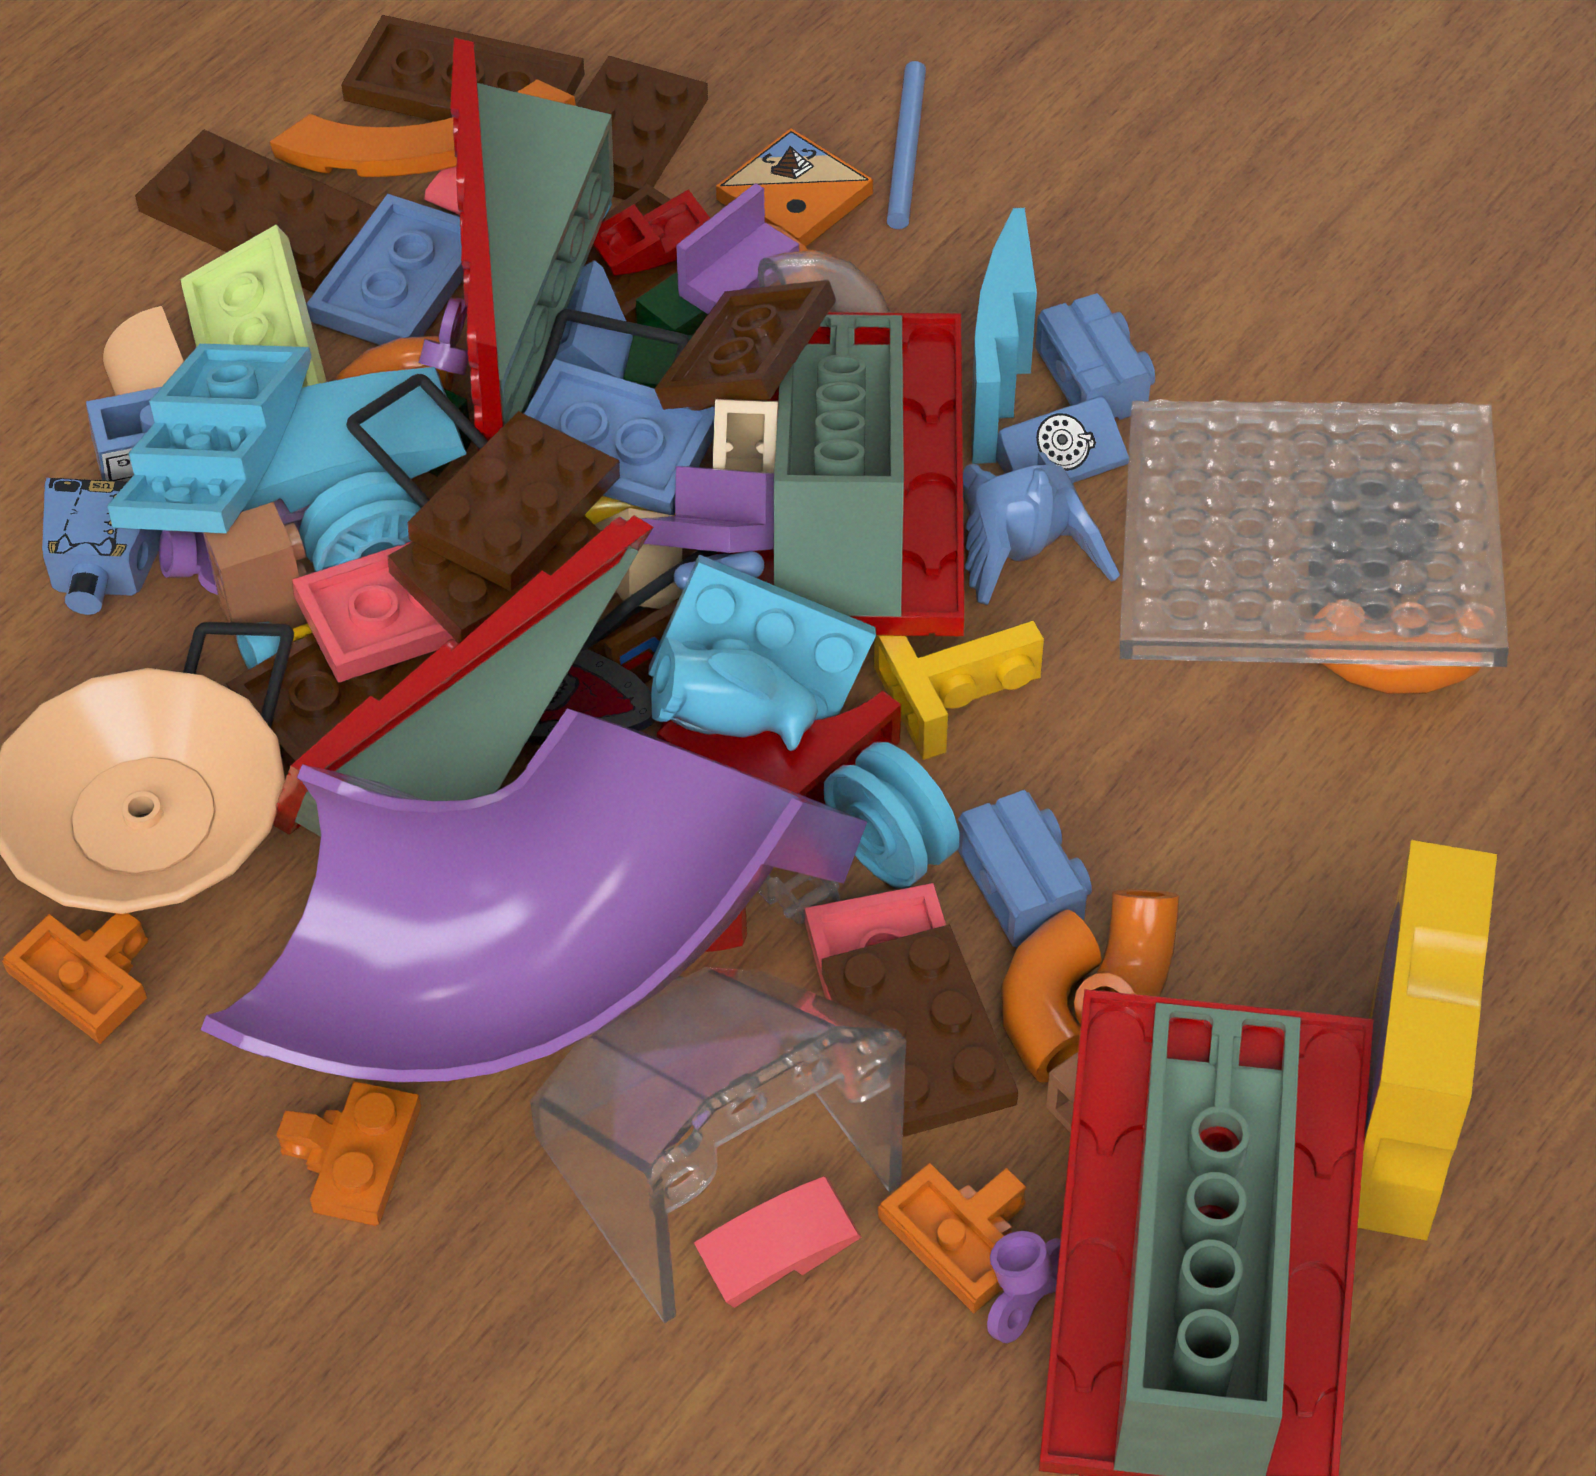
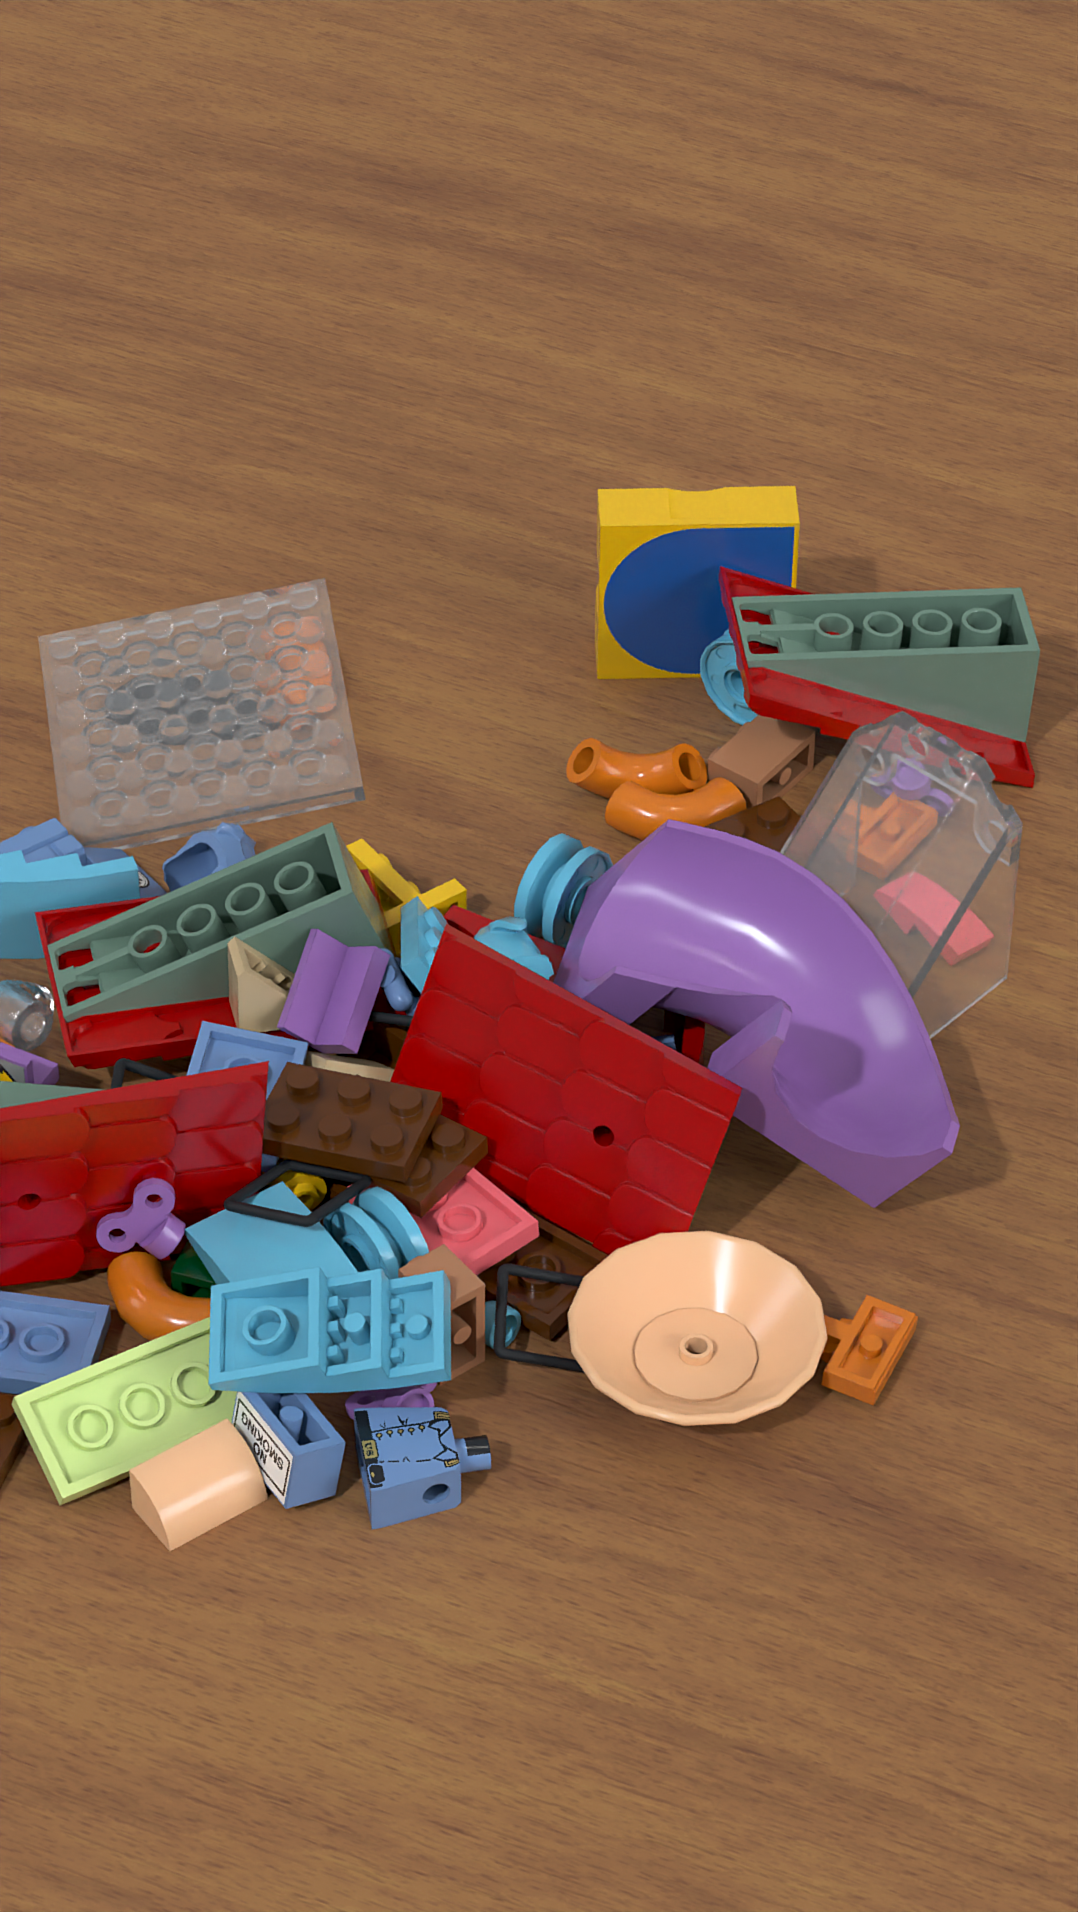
camera: 105 degrees left, 10 degrees down
(353, 1150) = (974, 1155): orange hinge -> none
(746, 345) = (145, 993): reddish brown plate -> none
(1021, 864) = (581, 817): medium blue brick -> none

